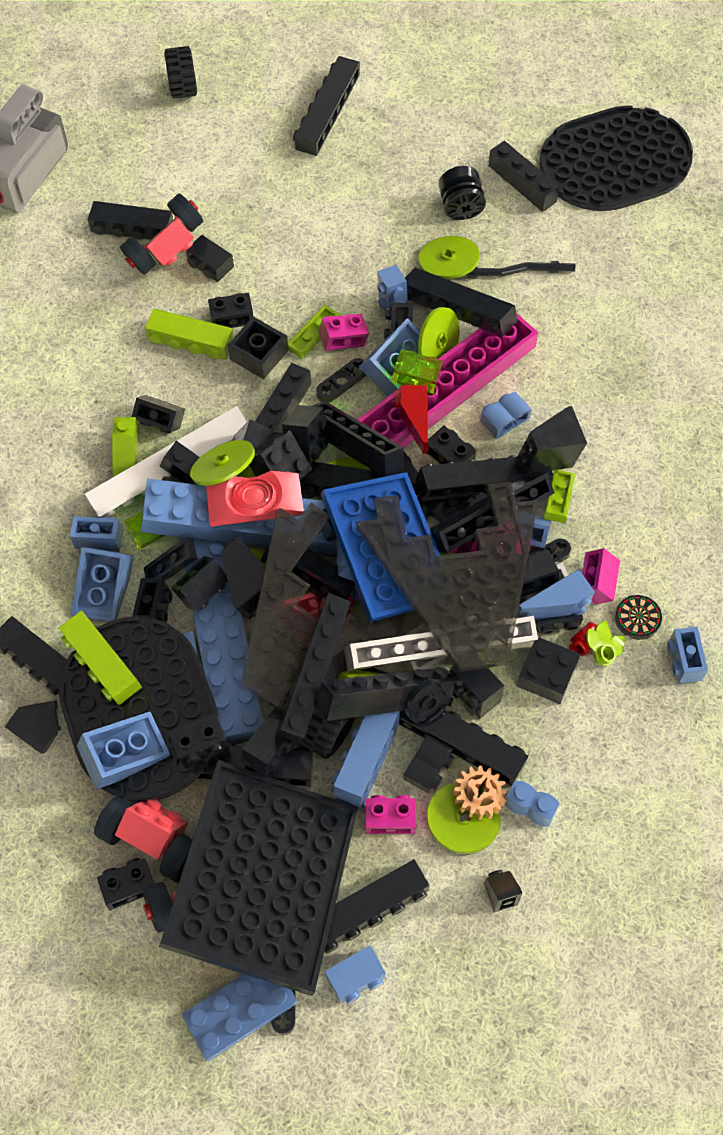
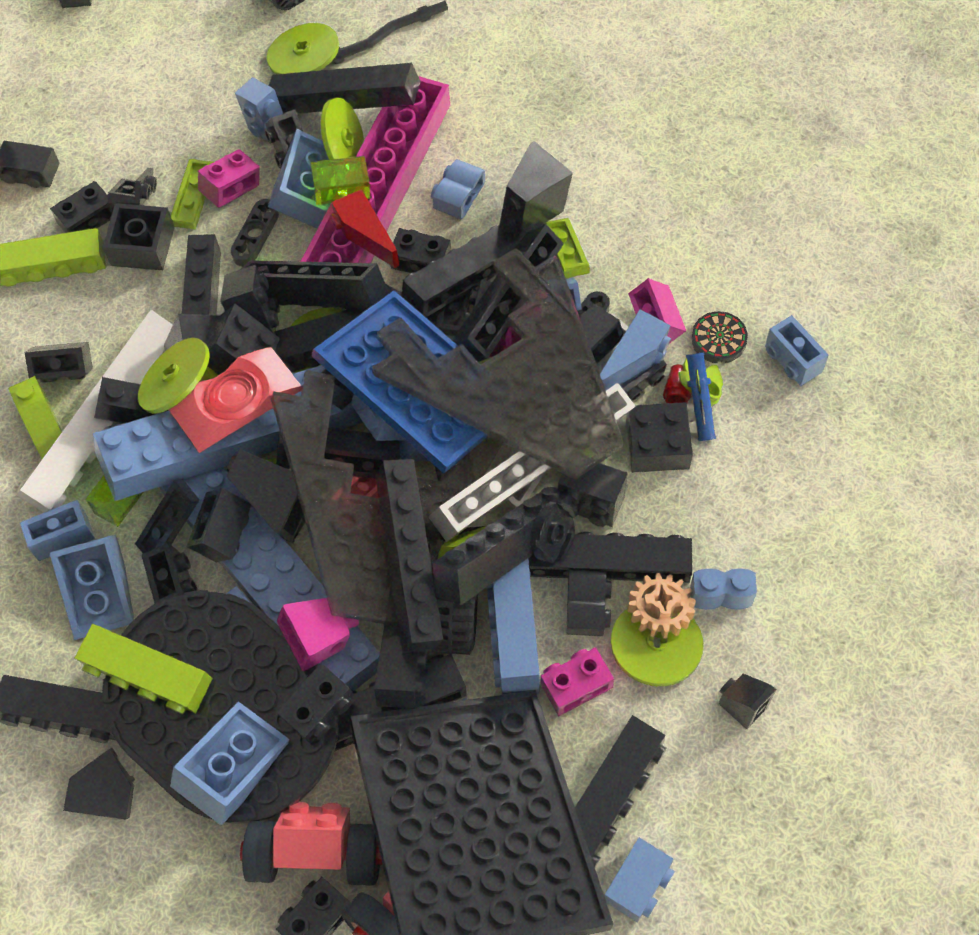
camera: 25 degrees left, 0 degrees up
(224, 689) = (313, 631): none -> dark pink torso
(272, 312) = (134, 191): none -> black bracket
(595, 654) = (705, 430): none -> blue pin

